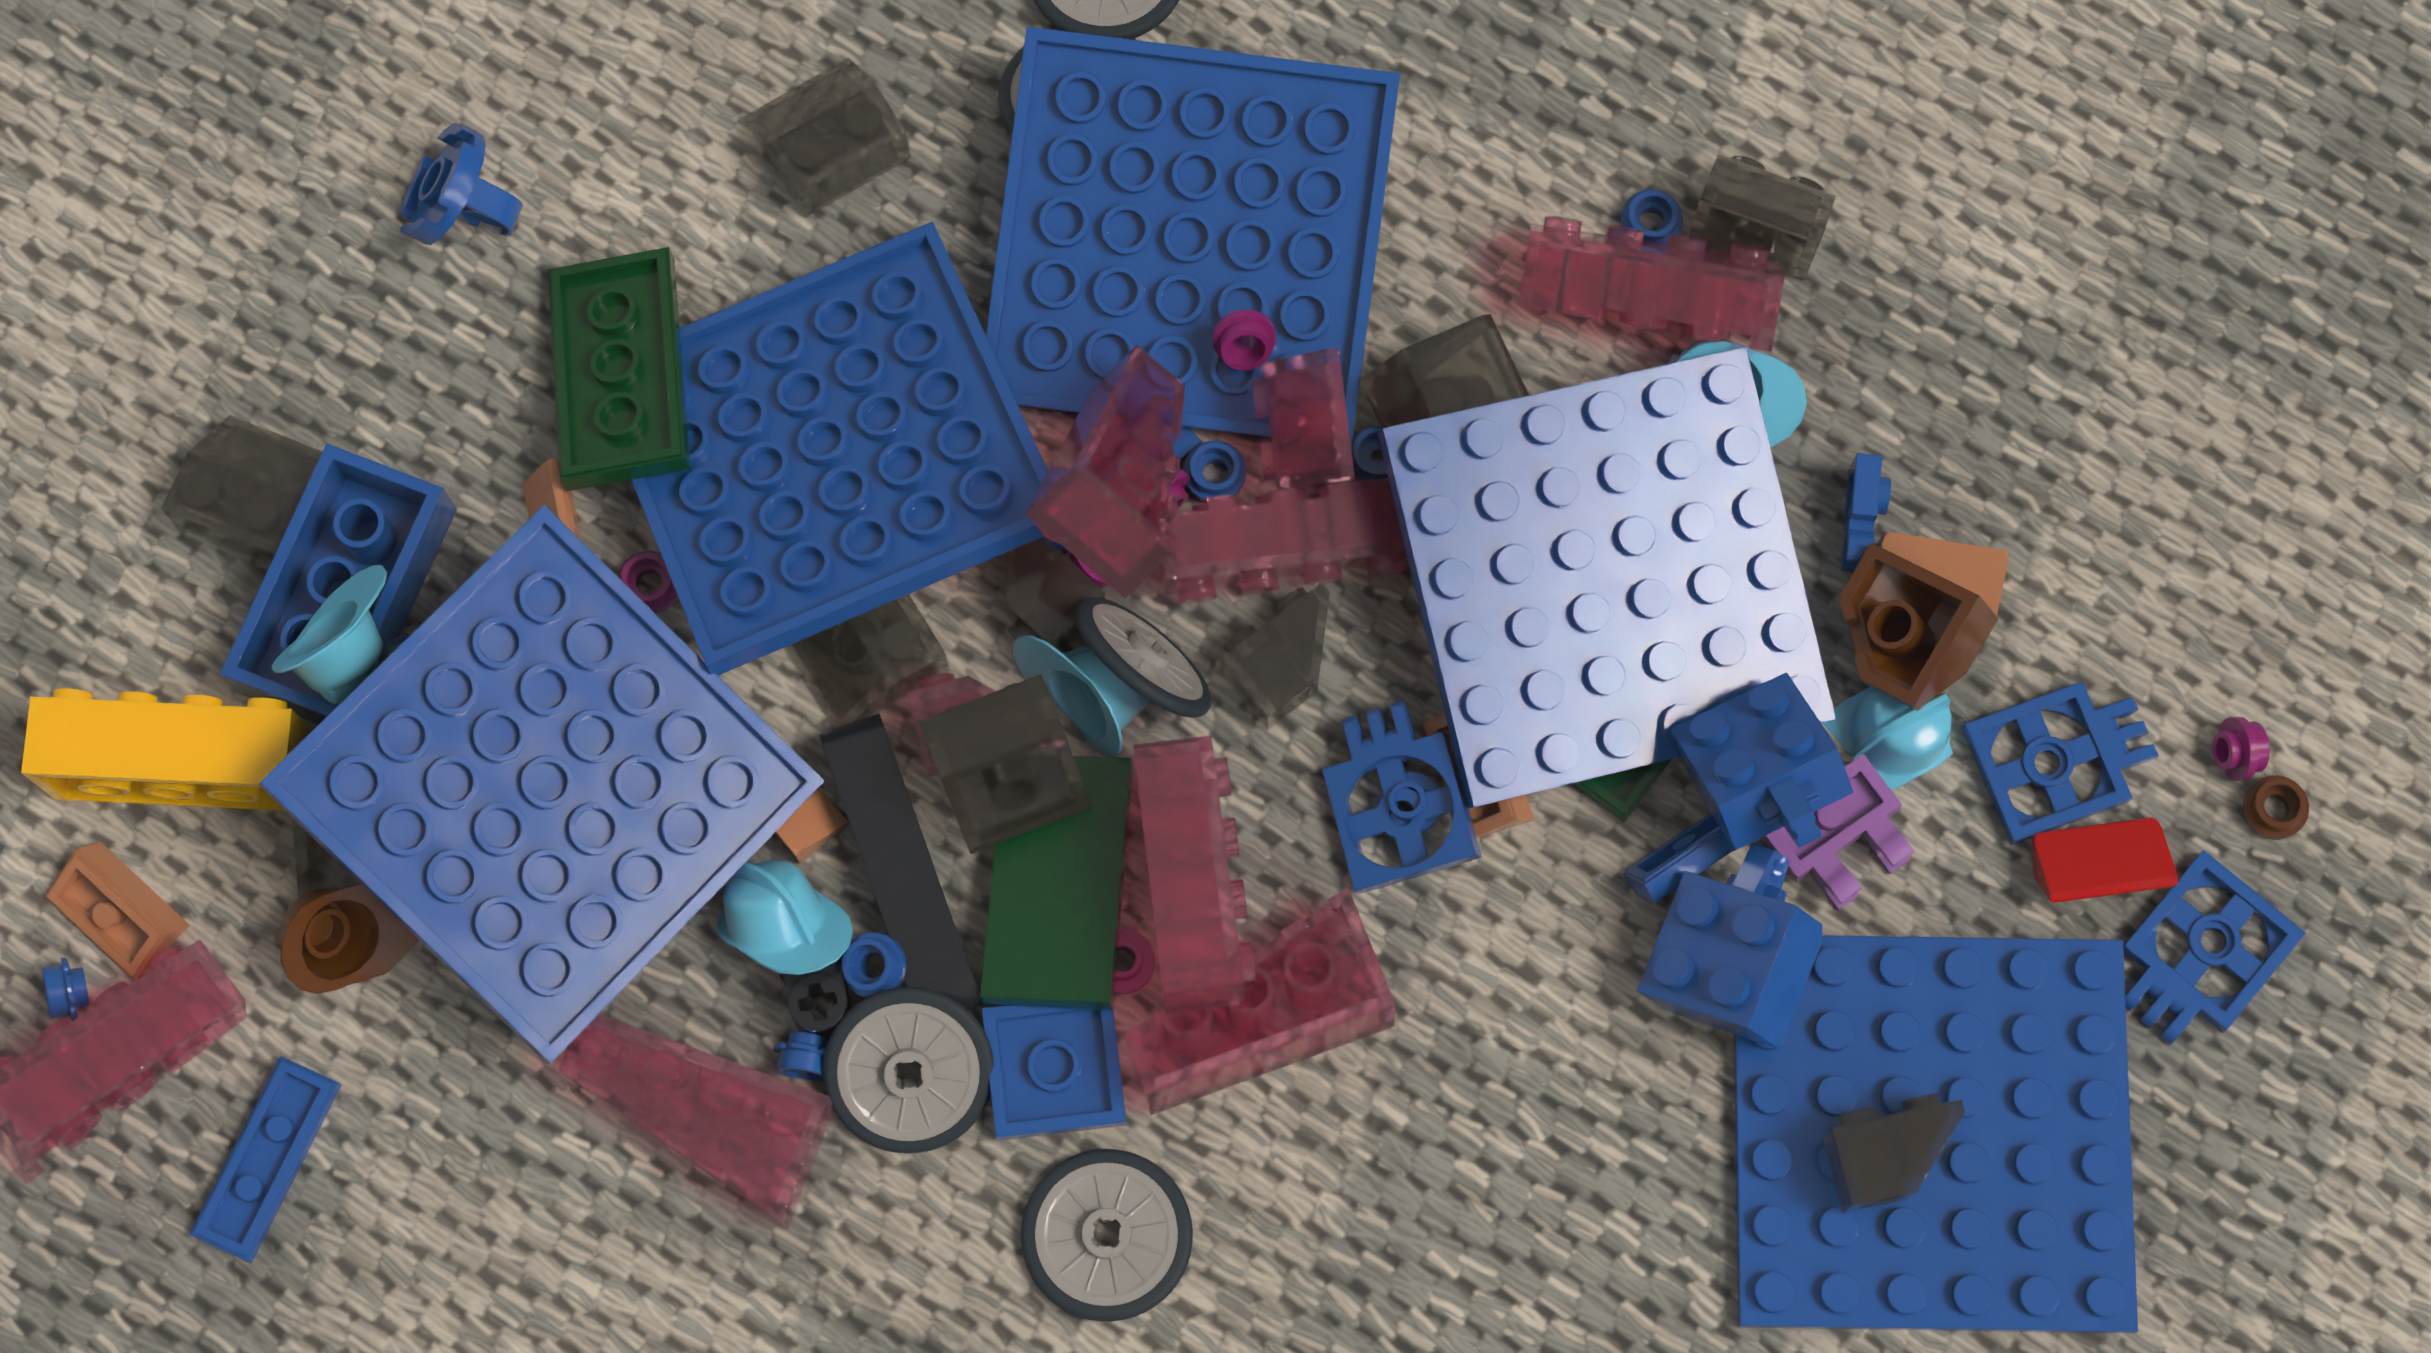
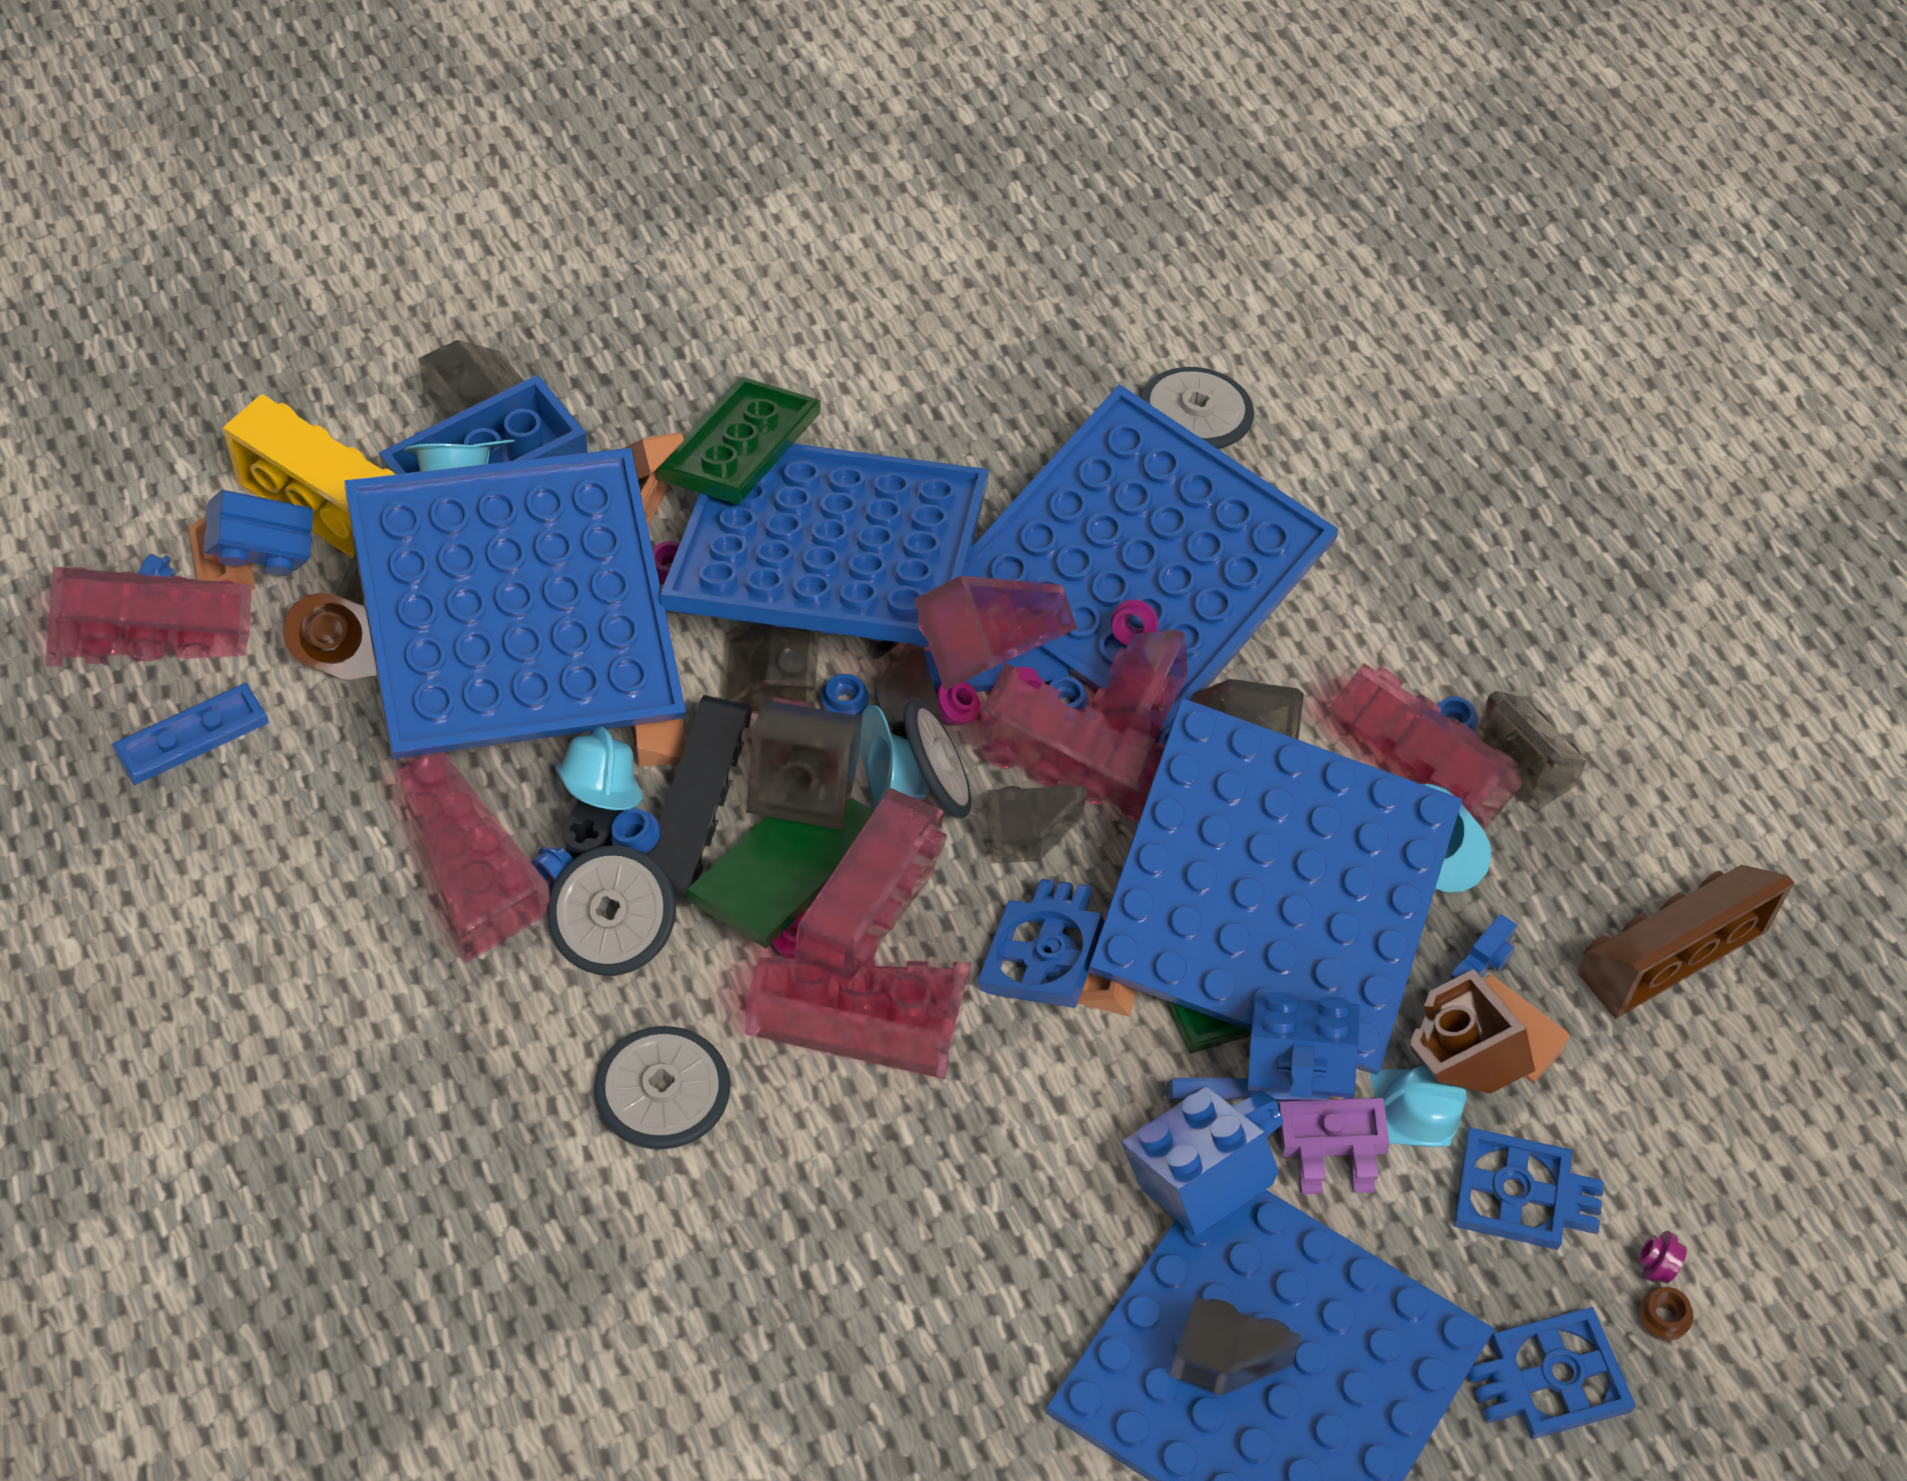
camera: 30 degrees right, 20 degrees down
(153, 866) = (258, 532): none -> blue brick
(452, 190) = (721, 308): blue tile -> none
(525, 474) = (653, 451): none -> nougat slope
(829, 136) = (961, 403): clear smoke slope -> none
(966, 609) = (845, 685): none -> blue plate
(1053, 1070) = (702, 968): blue plate -> none
(2055, 349) = (1683, 936): none -> reddish brown slope
(2102, 860) = (1513, 1266): red slope -> none

